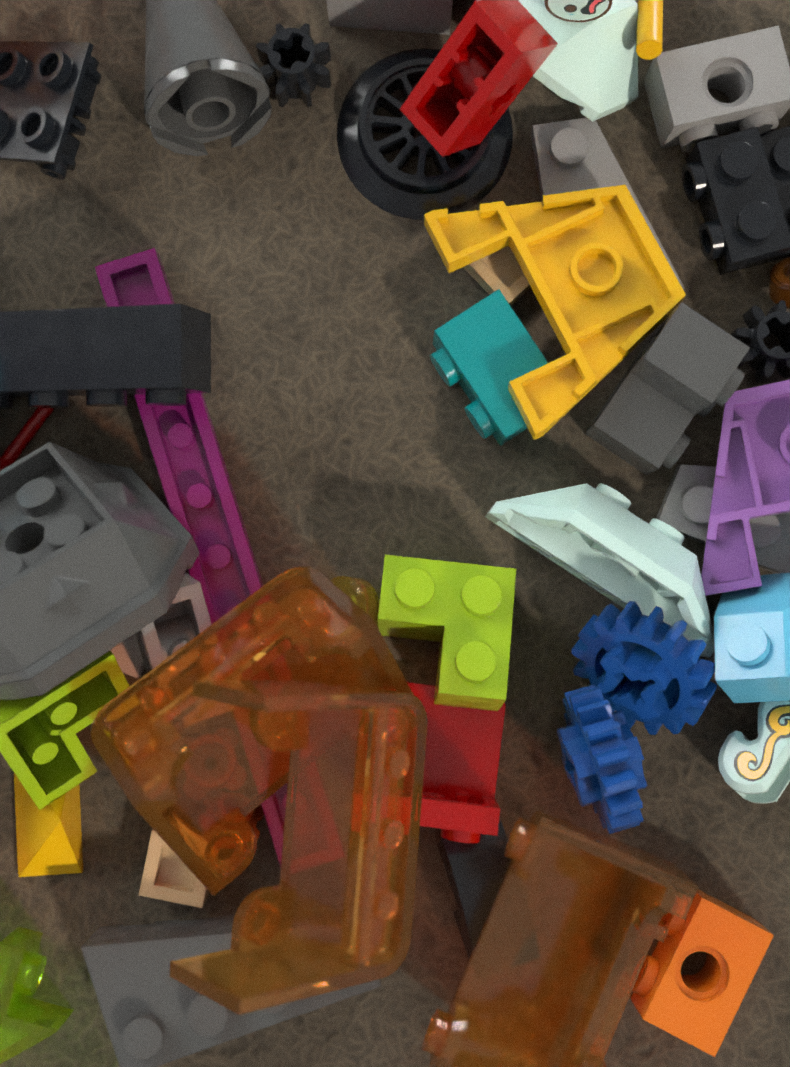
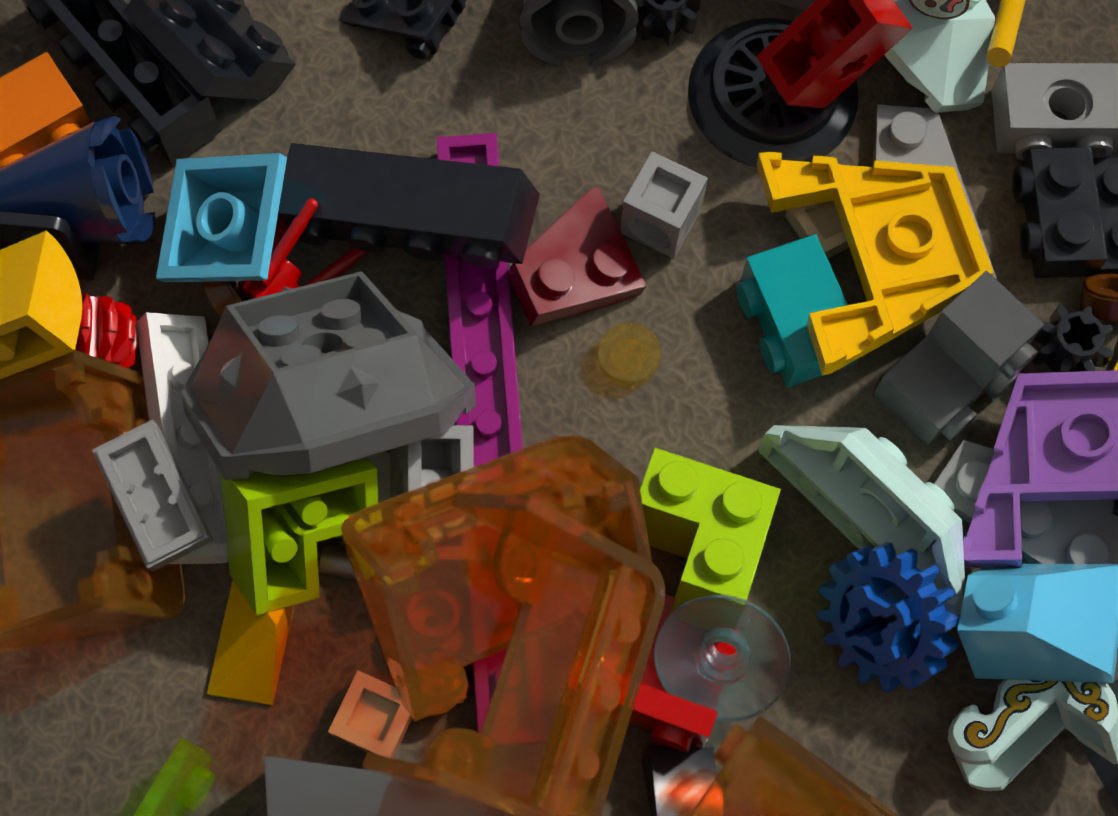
camera: 10 degrees right, 15 degrees down
(267, 370) = (576, 265): none -> dark red wing
(338, 289) = (663, 204): none -> light grey brick
(339, 450) = (629, 355): none -> clear yellow tile
(493, 747) = (731, 684): none -> clear light blue dish
(602, 759) = (830, 692): blue gear -> none

